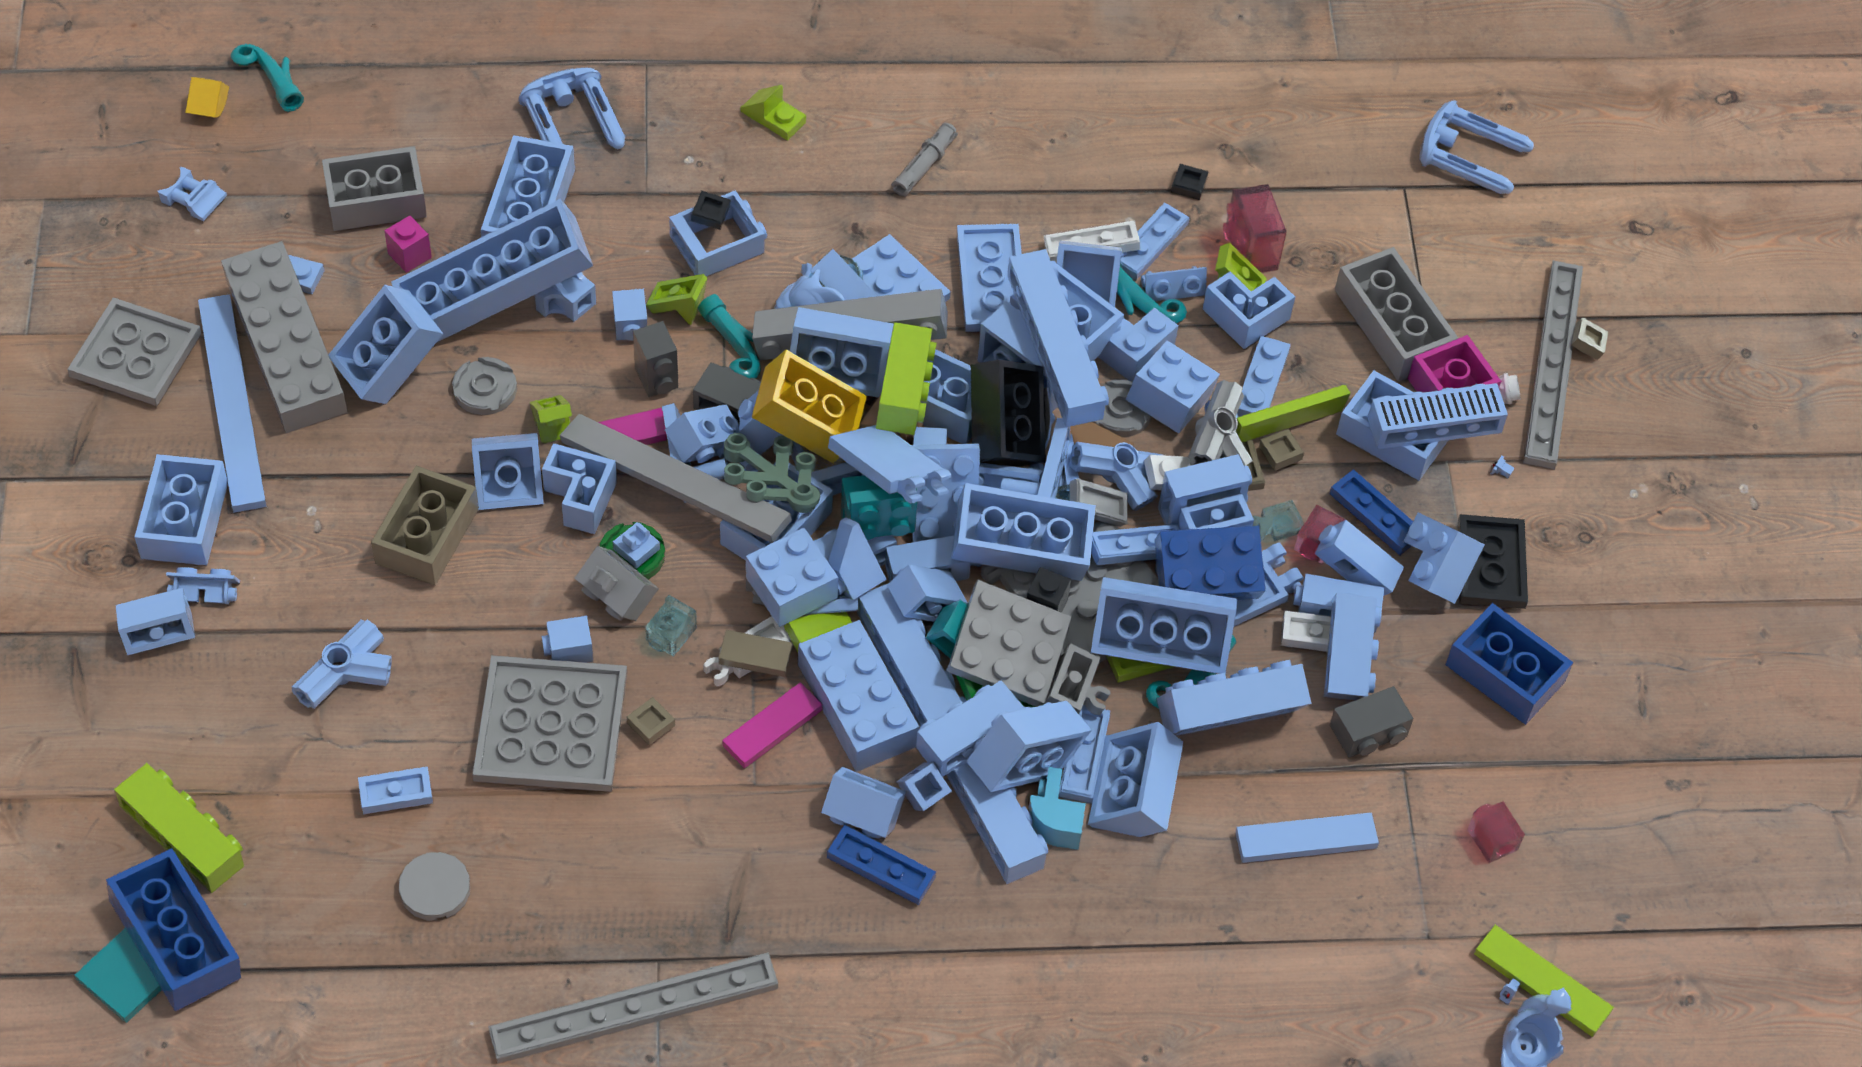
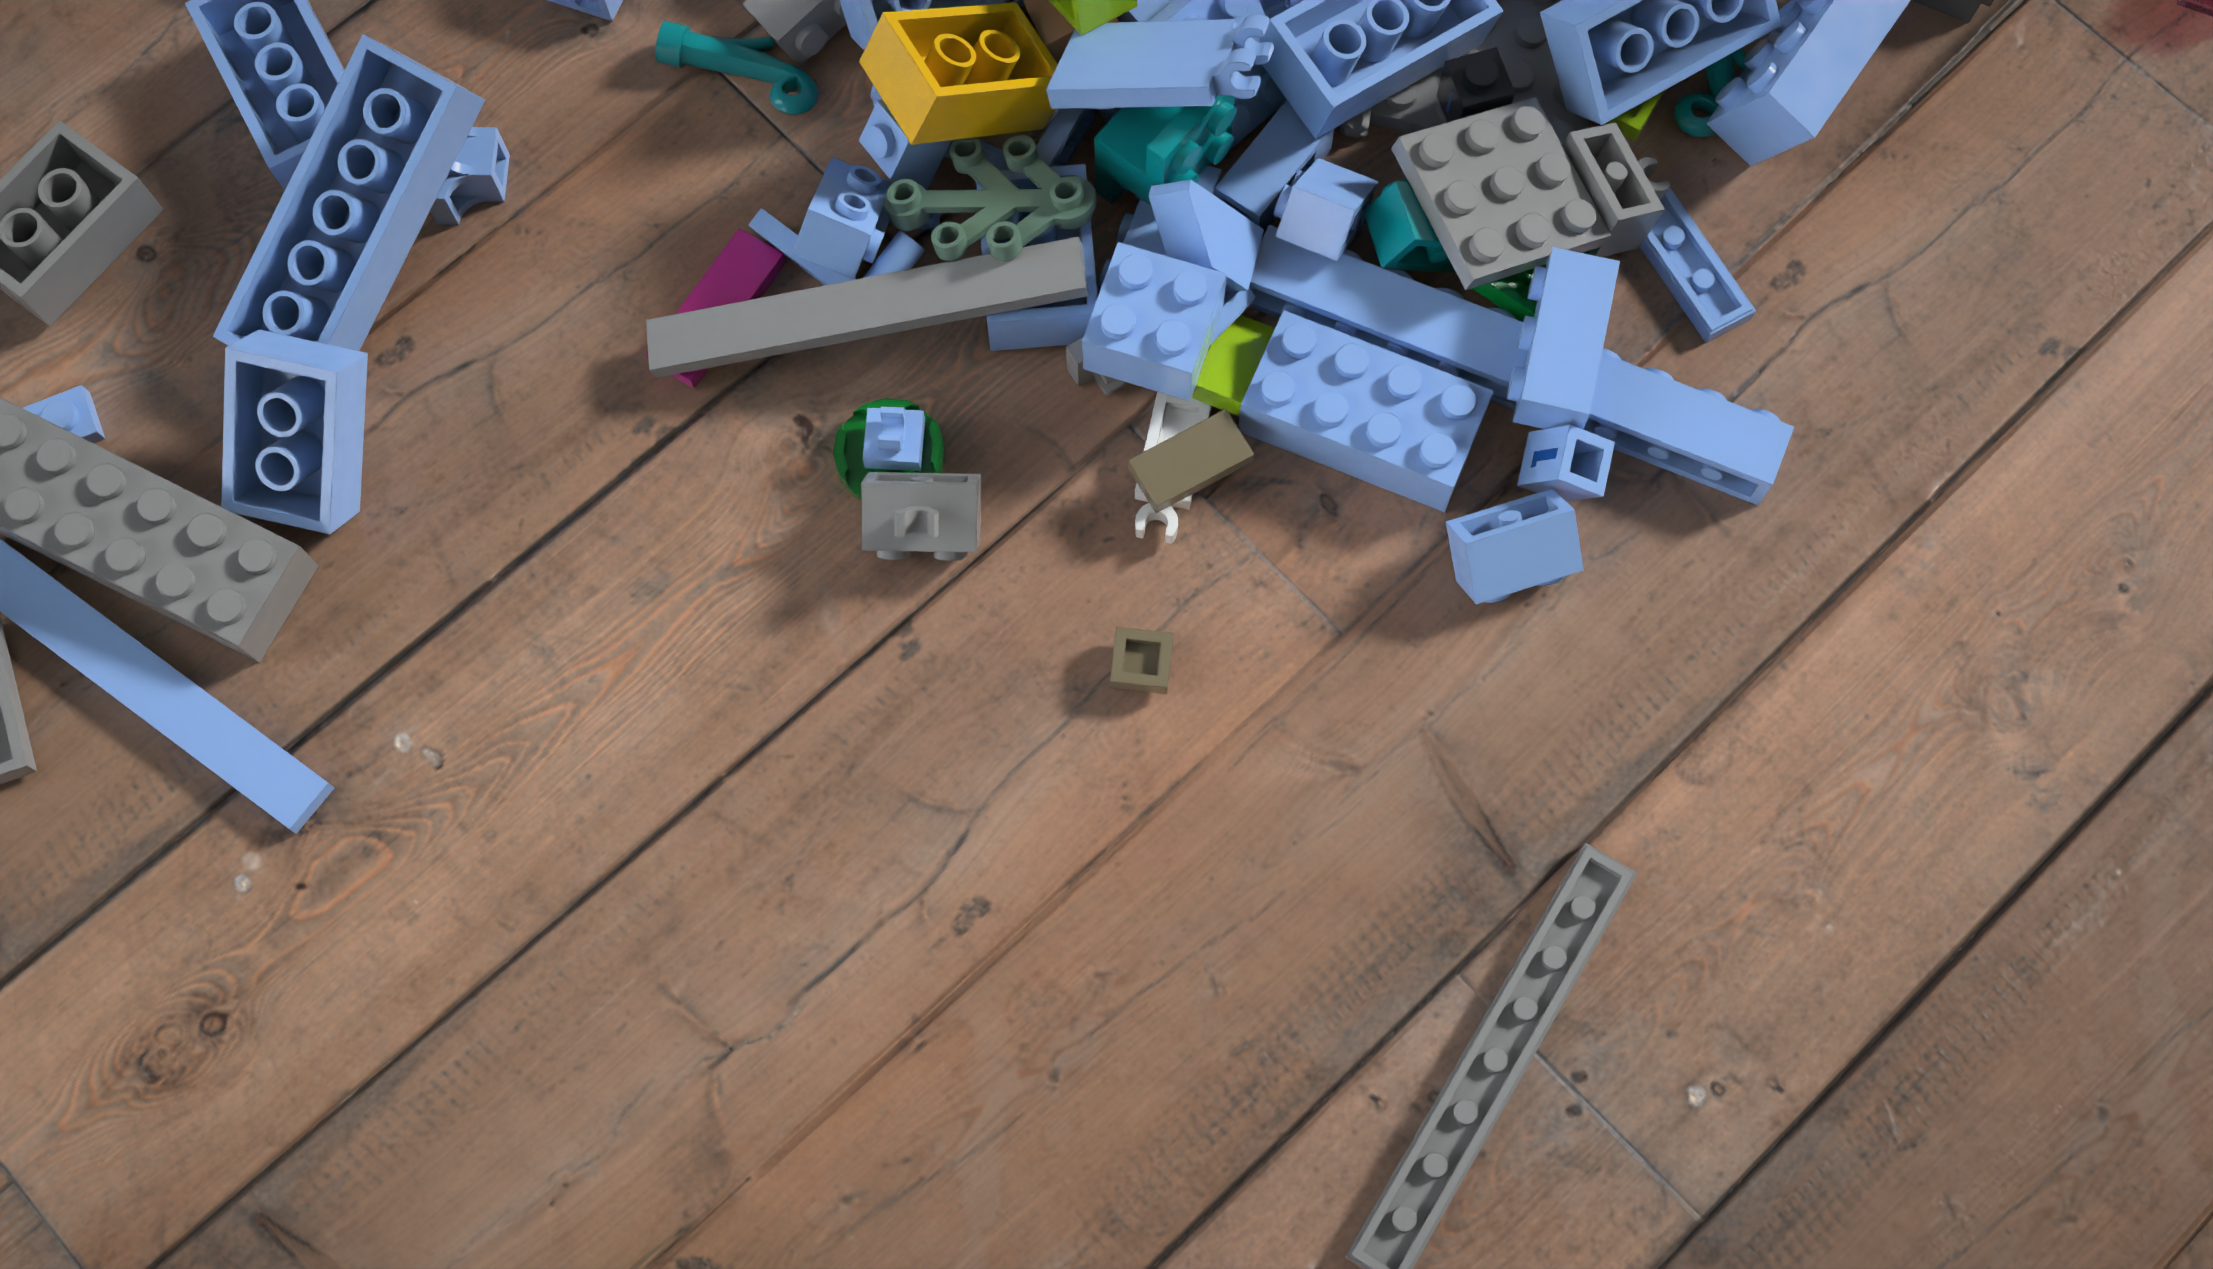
camera: 35 degrees left, 15 degrees up
(155, 621) = (345, 1088): light blue brick -> none
(181, 510) = (225, 896): light blue brick -> none
(216, 584) = (337, 990): light blue hinge -> none
(358, 665) = (694, 908): light blue piece -> none
(395, 790) = (907, 1039): light blue plate -> none
(408, 244) = (177, 265): dark pink brick -> none
(425, 525) = (590, 639): dark tan brick -> none
(434, 886) = (1085, 1124): light grey tile -> none
(484, 386) = (472, 381): light grey tile -> none
(507, 471) = (623, 473): light blue slope -> none
(550, 723) = (1018, 772): light grey plate -> none
(551, 417) = (607, 352): lime slope -> none
(568, 640) = (933, 641): light blue brick -> none
(583, 481) = (740, 405): light blue brick -> none
(629, 312) = (576, 134): light blue brick -> none
(655, 359) = (677, 166): dark grey brick -> none
(671, 626) = (1040, 491): clear light blue brick -> none
(680, 295) = (617, 57): lime slope -> none
(723, 386) = (804, 138): dark grey brick -> none
(772, 725) = (1291, 538): dark pink tile -> none
(881, 864) = (1604, 608): blue plate -> none
(1026, 744) = (1658, 306): light blue brick -> none
(1053, 818) = (1744, 374): medium azure brick -> none
(1136, 781) = (1788, 247): light blue slope -> none
(1306, 837) = (2029, 159): light blue tile -> none

